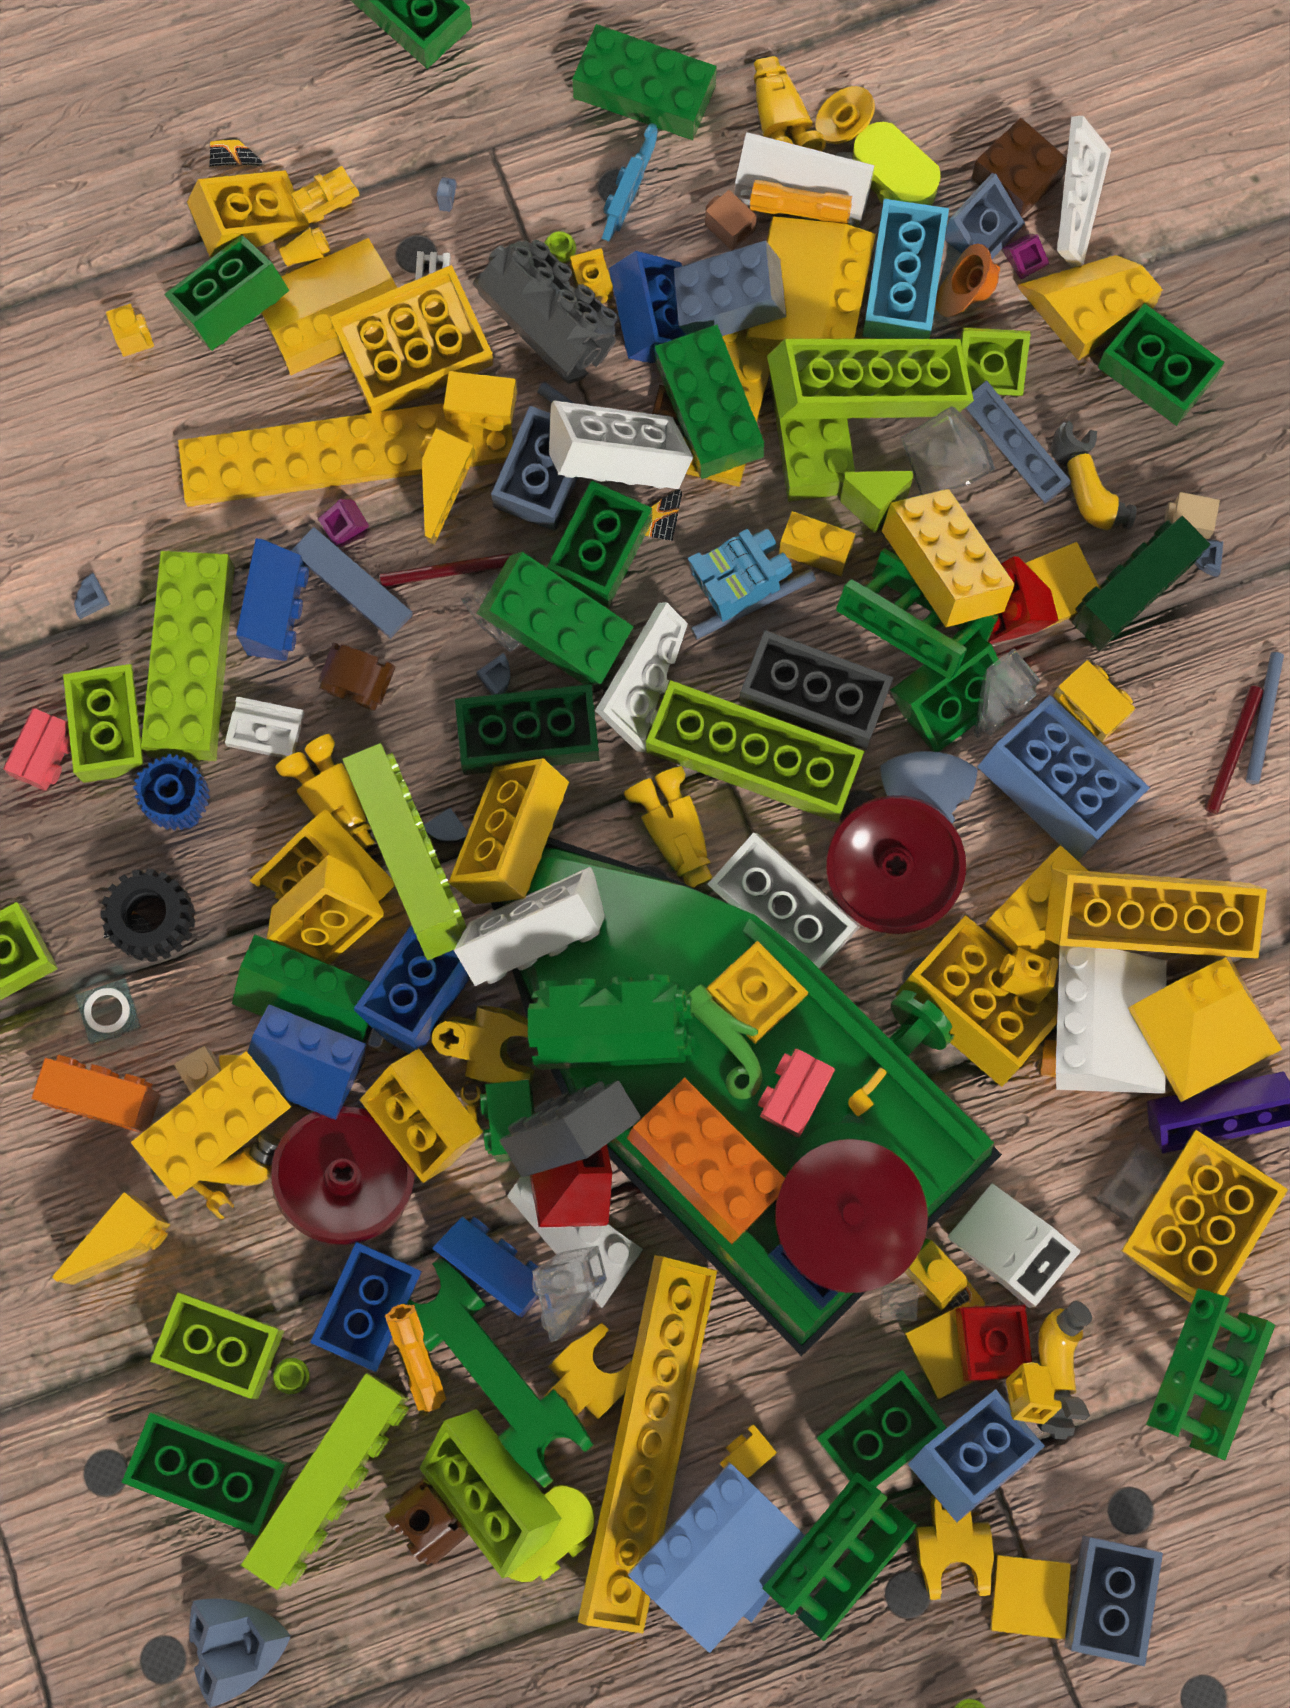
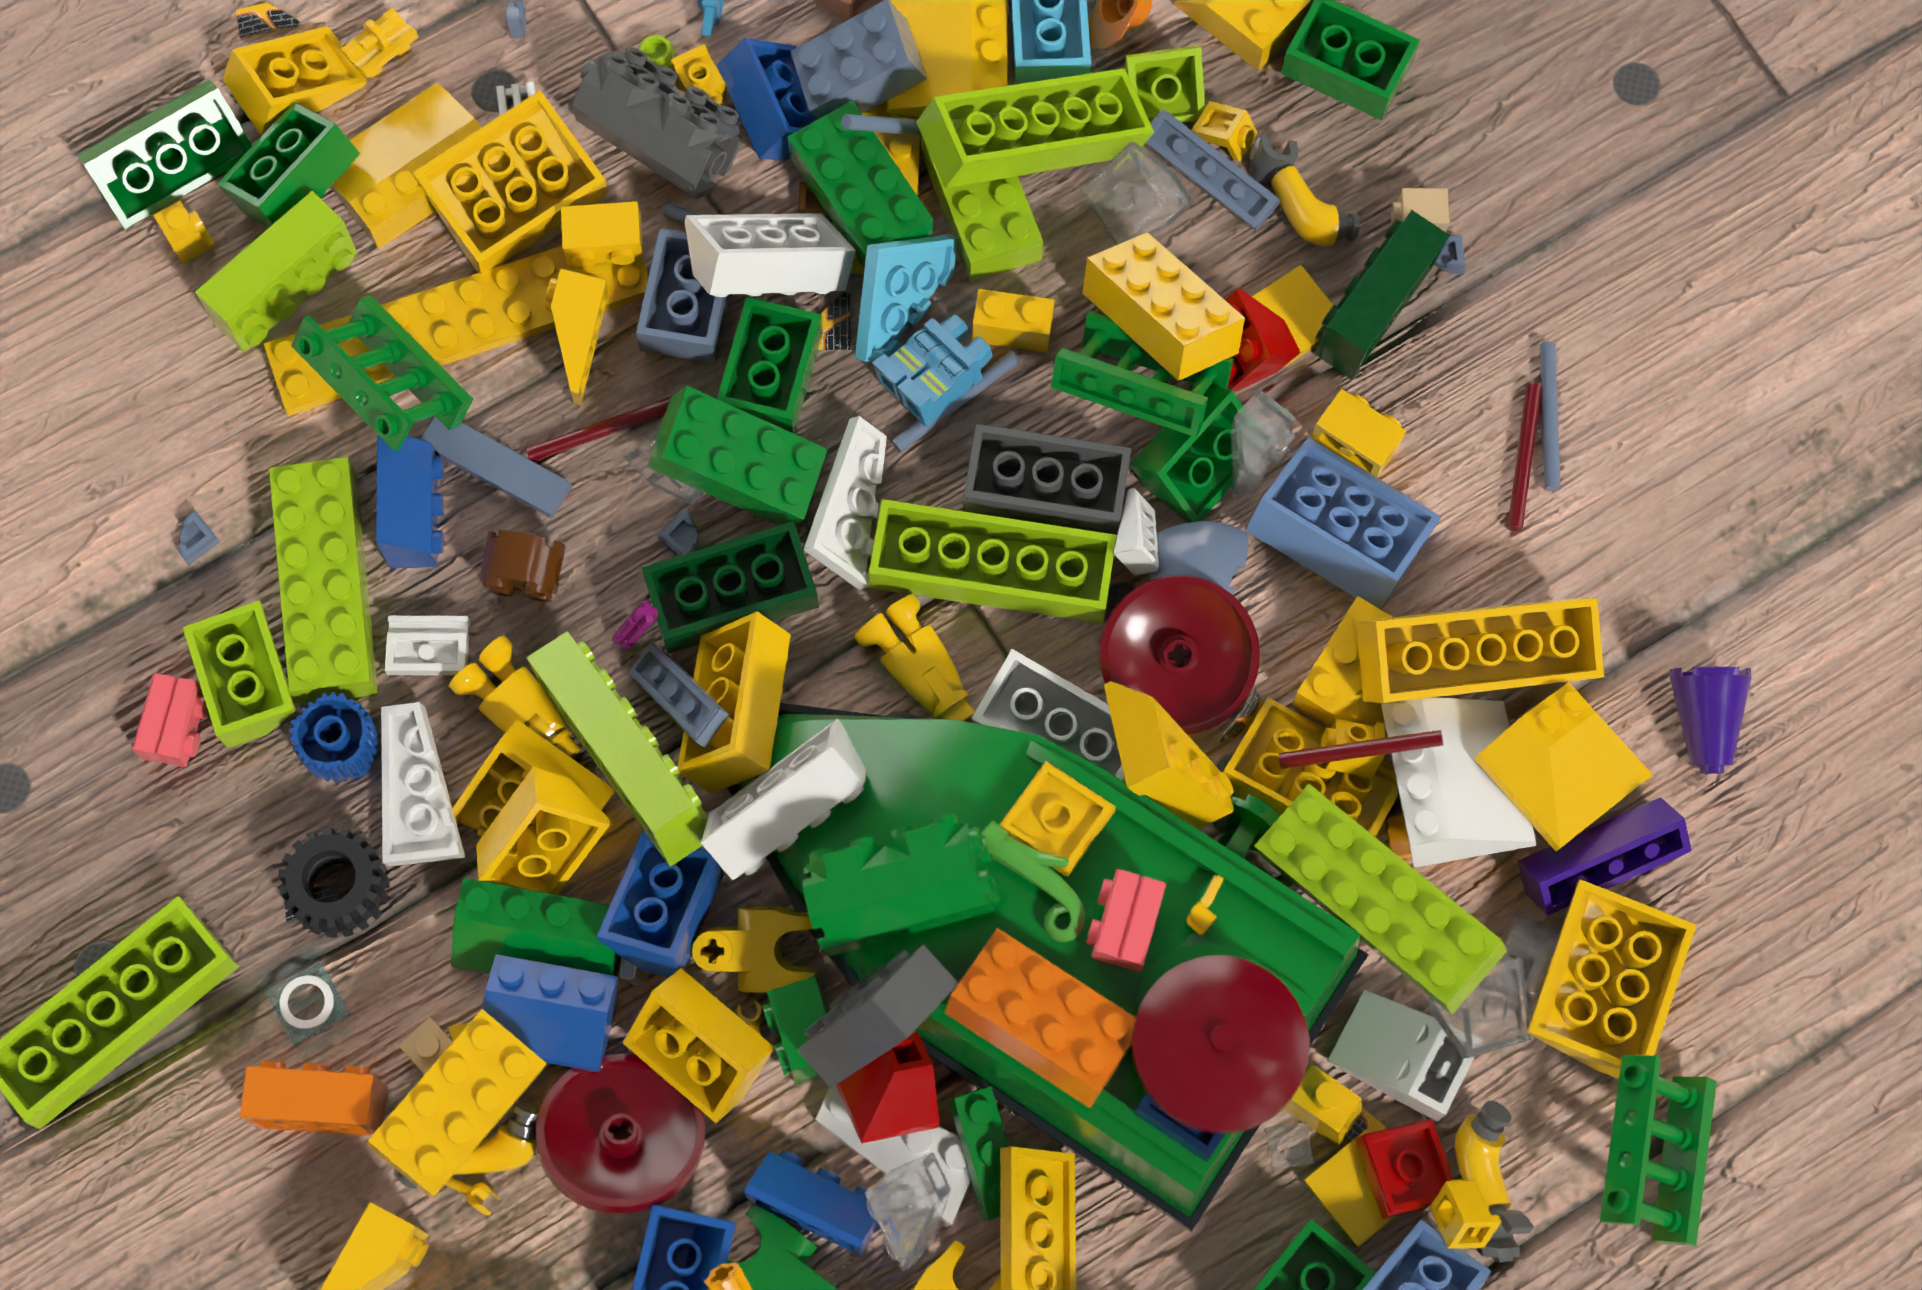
camera: 15 degrees left, 5 degrees down
(127, 258) = (166, 153): none -> green slope
(200, 381) = (277, 272): none -> lime brick
(228, 858) = (415, 798): none -> white wing
(289, 473) = (401, 354): none -> green fence
(306, 247) = (369, 104): yellow cone -> none
(343, 521) = (483, 396): magenta slope -> none
(440, 747) = (635, 625): none -> magenta axle
(446, 827) = (656, 718): sand blue tile -> none
(464, 815) = (678, 694): none -> sand blue tile
(640, 1243) = (981, 1140): none -> green plate
(722, 498) = (898, 289): none -> medium azure plate
(735, 350) = (880, 124): none -> sand blue bar
(860, 959) = (1164, 760): none -> yellow wedge
(871, 492) = (1062, 253): lime slope -> none
(882, 754) = (1137, 535): none -> white slope
(941, 929) = (1245, 717): none -> sticker
(1019, 1115) = (1381, 899): none -> lime brick
(1033, 980) = (1361, 749): none -> dark red bar
(1038, 408) = (1226, 128): none -> yellow bracket
(1086, 1219) = (1492, 1014): none -> clear slope

